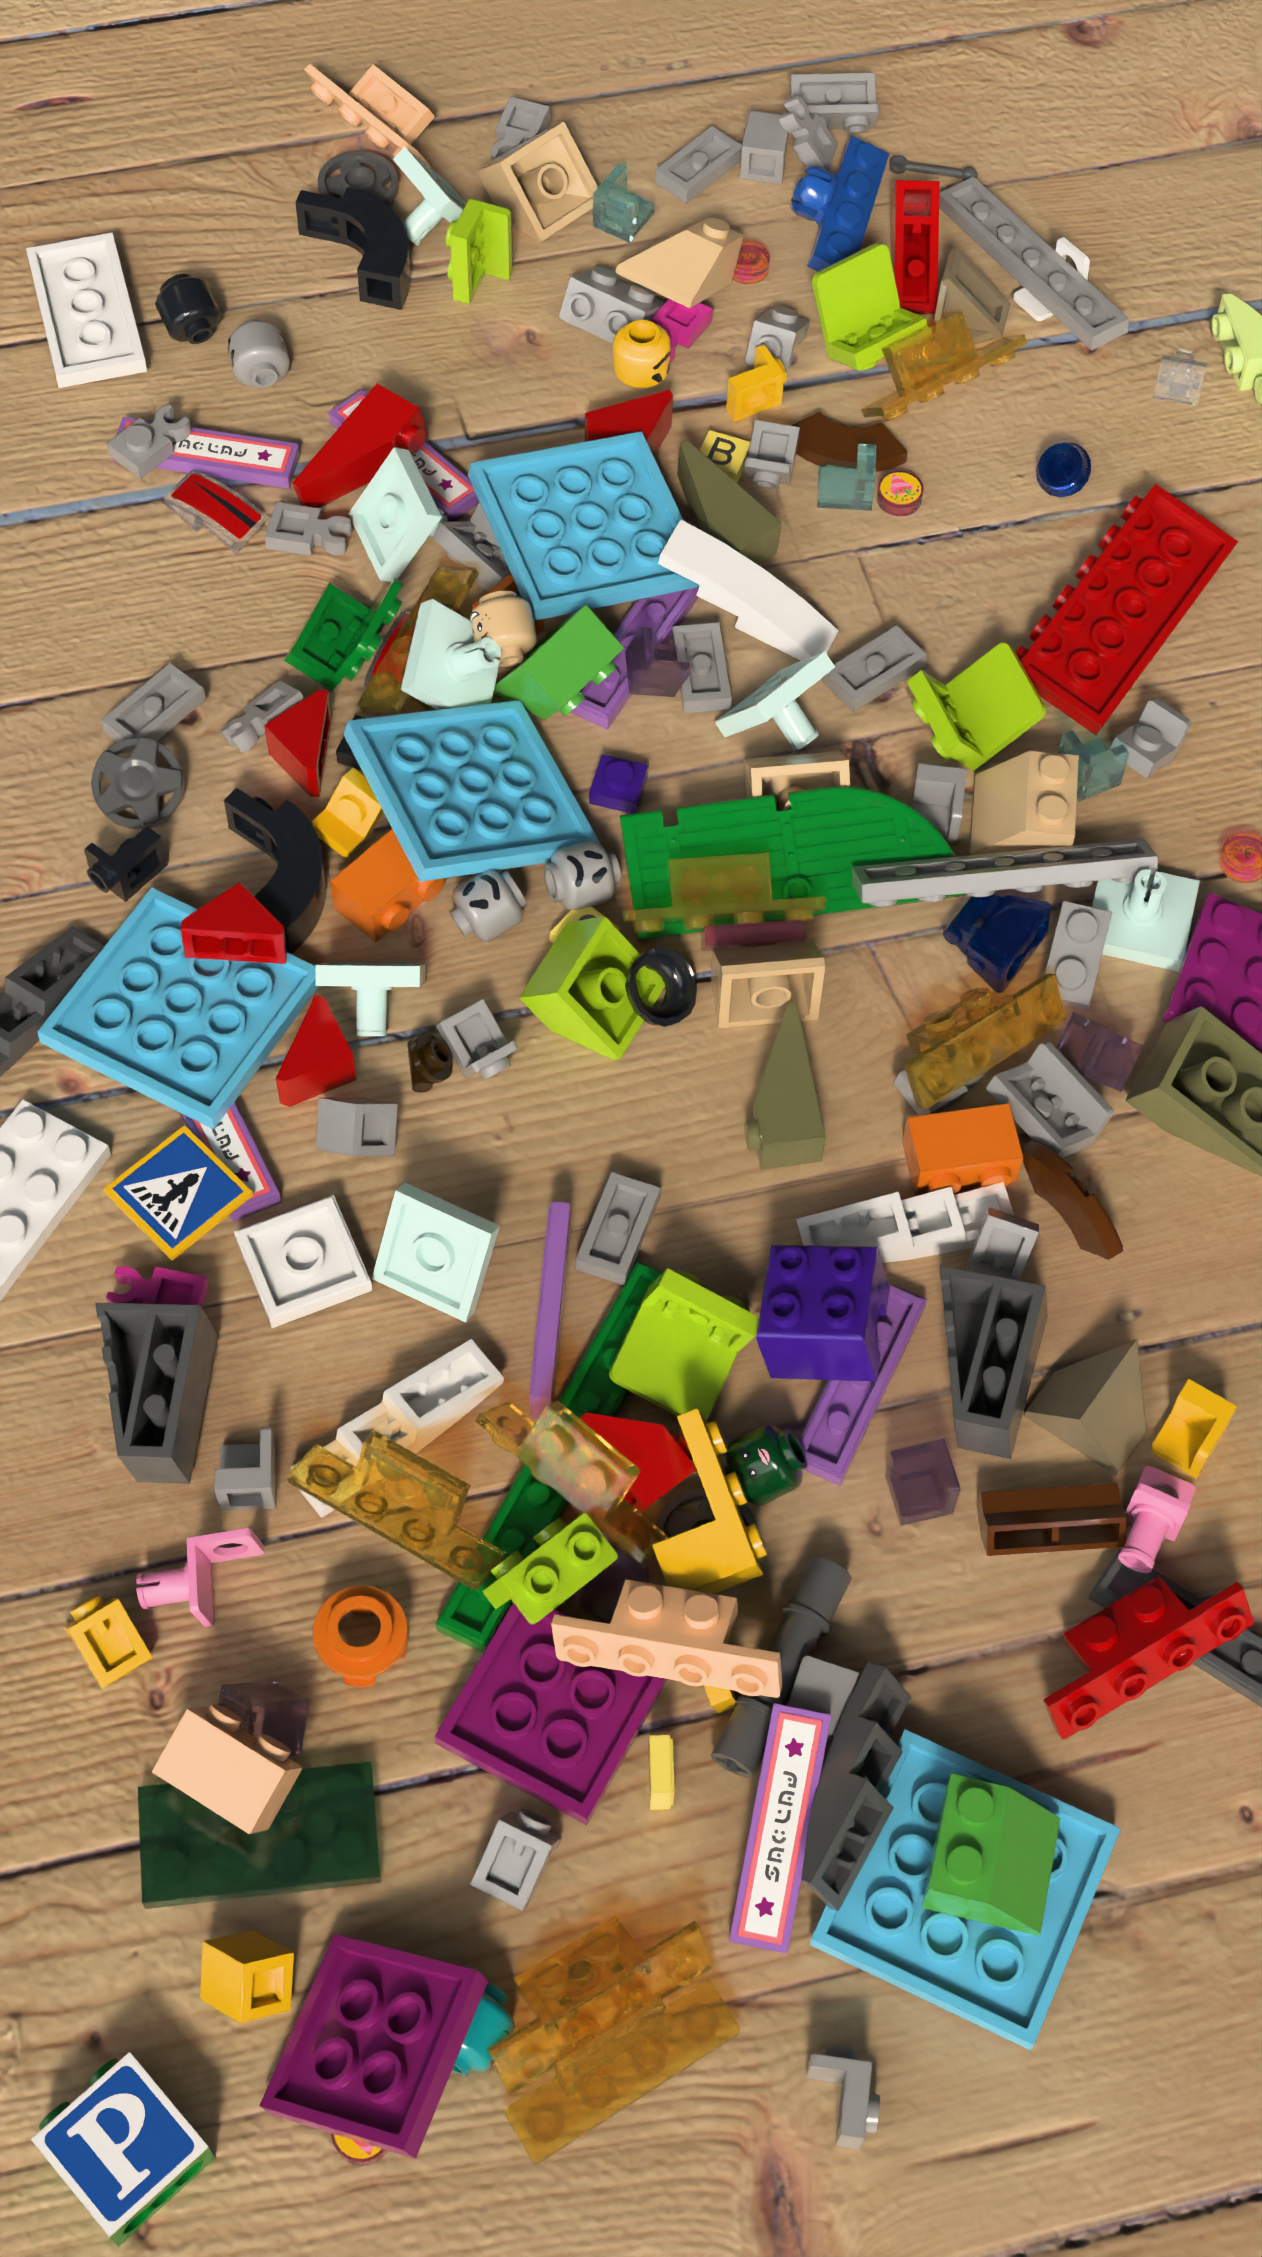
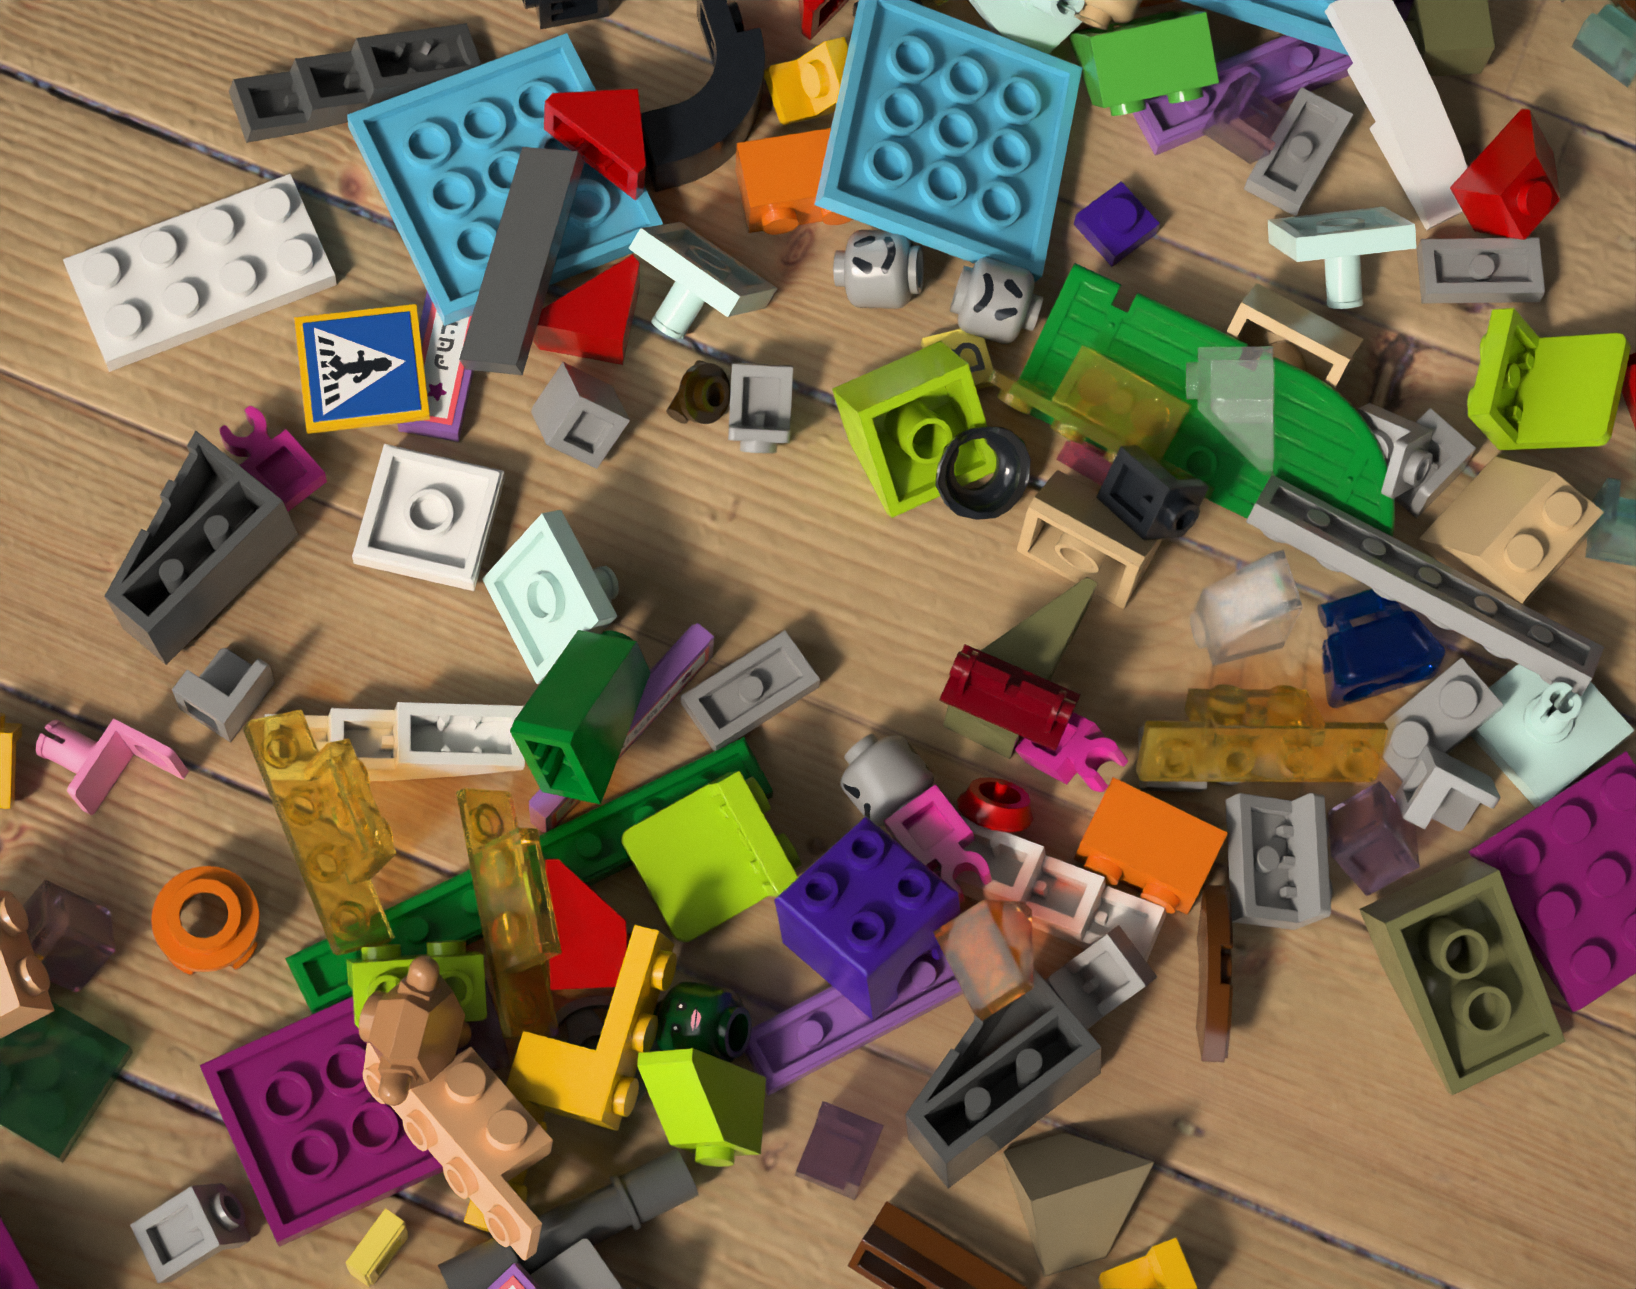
camera: 30 degrees right, 10 degrees up
(242, 1046) = (522, 261): none -> dark grey tile
(529, 1306) = (582, 714): none -> green slope
(583, 1586) = (413, 1030): none -> medium nougat rock
(755, 1223) = (884, 776): none -> light grey head
(791, 921) = (1149, 496): none -> black bracket
(799, 829) = (1238, 398): none -> clear slope
(802, 1108) = (1009, 697): none -> dark red hinge
(812, 1510) = (705, 1104): none -> lime slope
(827, 1225) = (937, 836): none -> dark pink plate
(841, 1189) = (996, 805): none -> red hat
(852, 603) = (1510, 181): none -> red slope
(856, 1120) = (1079, 751): none -> dark pink plate
(907, 958) = (1247, 610): none -> clear slope
(923, 797) = (1404, 448): none -> light grey bracket
(927, 1278) = (990, 953): none -> clear orange slope
(1117, 991) = (1443, 791): none -> light grey panel

